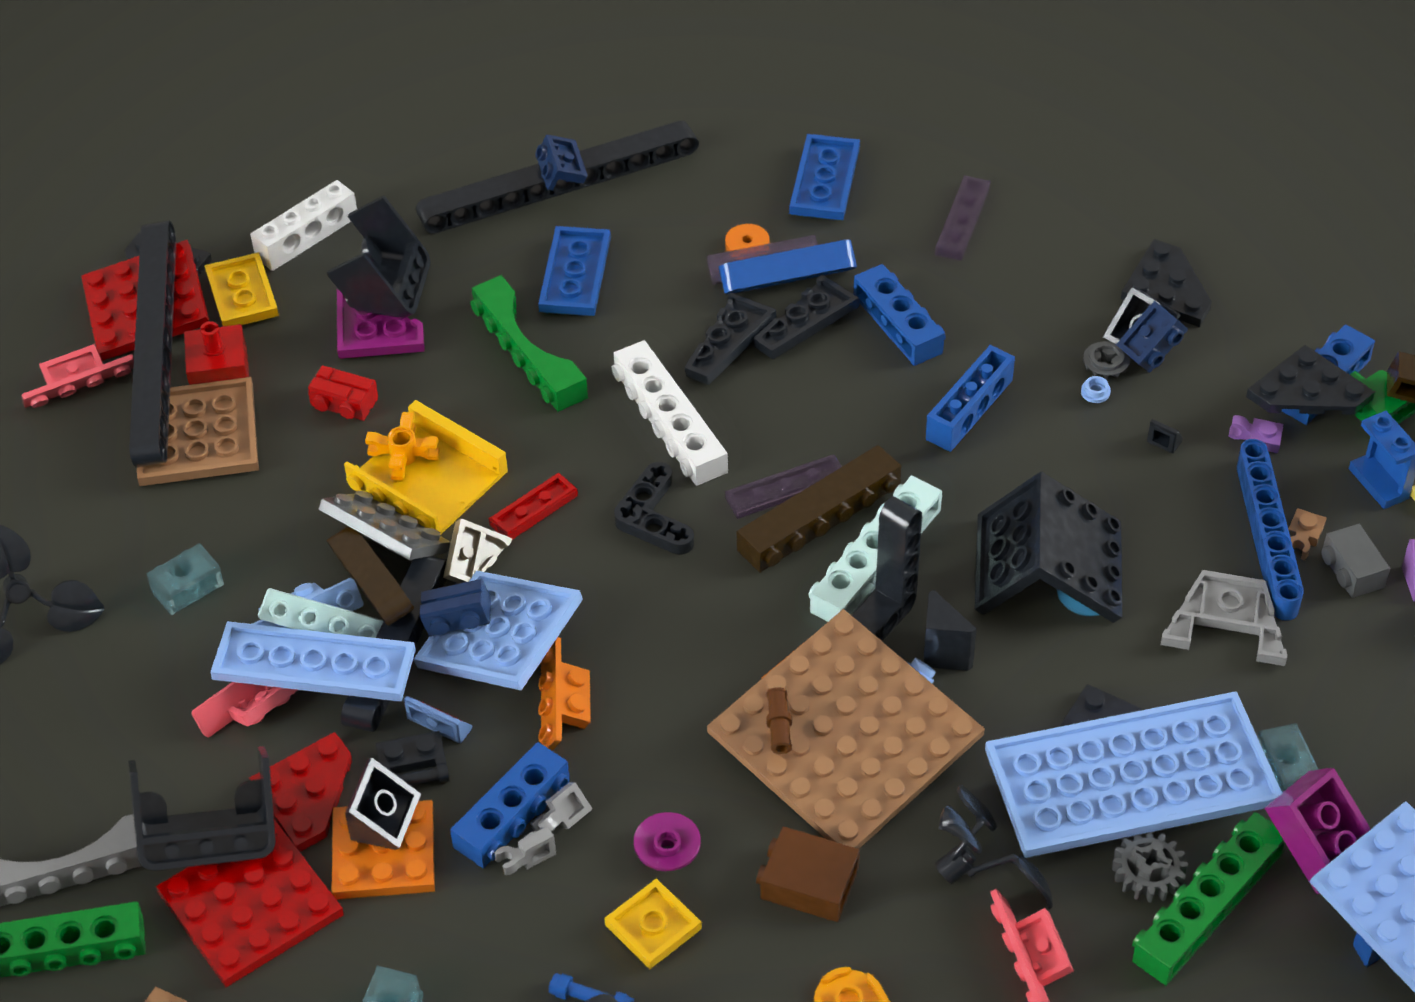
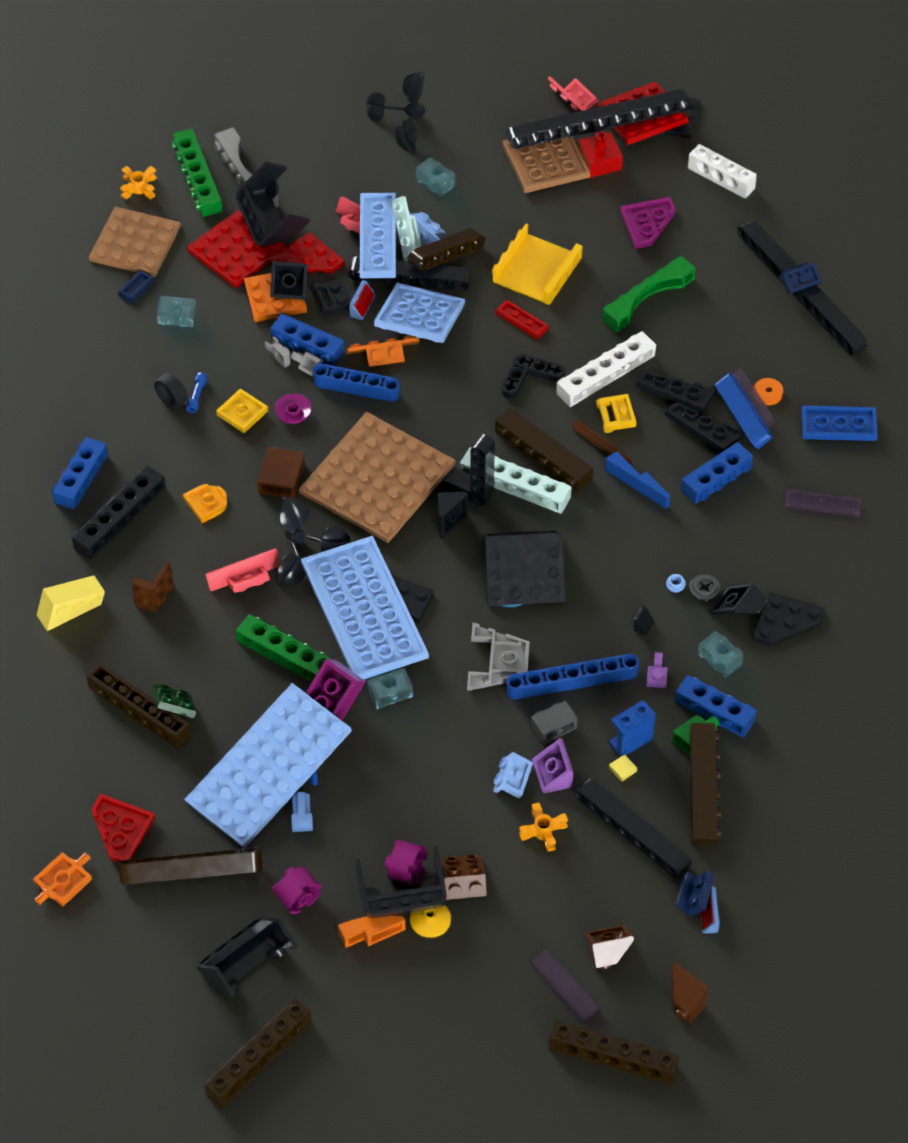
camera: 80 degrees right, 5 degrees up
(241, 290) = (661, 155): yellow plate -> none
(342, 393) = (587, 216): red brick -> none
(385, 525) = (484, 250): dark grey plate -> none
(391, 264) = (685, 222): black windscreen -> none
(402, 446) = (549, 248): light orange pin -> none
(455, 607) = (426, 289): dark blue brick -> none
(472, 550) = (477, 294): wing -> none
(574, 271) = (718, 307): blue plate -> none
(646, 701) = (356, 382): none -> blue beam
(758, 406) = (622, 412): none -> yellow plate
(778, 487) = (561, 432): clear purple tile -> none
(779, 720) = (367, 437): reddish brown pin -> none
(813, 440) = (598, 440): none -> reddish brown axle
(908, 396) = (644, 483): none -> blue slope
(924, 669) = (427, 509): light blue plate -> none
(970, 398) = (646, 512): blue brick -> none
(1149, 866) = (307, 624): dark grey gear -> none
(1152, 337) = (716, 602): dark blue bracket -> none
(1234, 356) = (724, 663): none -> clear light blue brick
(1306, 530) = (579, 700): medium nougat plate -> none
(1311, 385) = (689, 687): black plate -> none

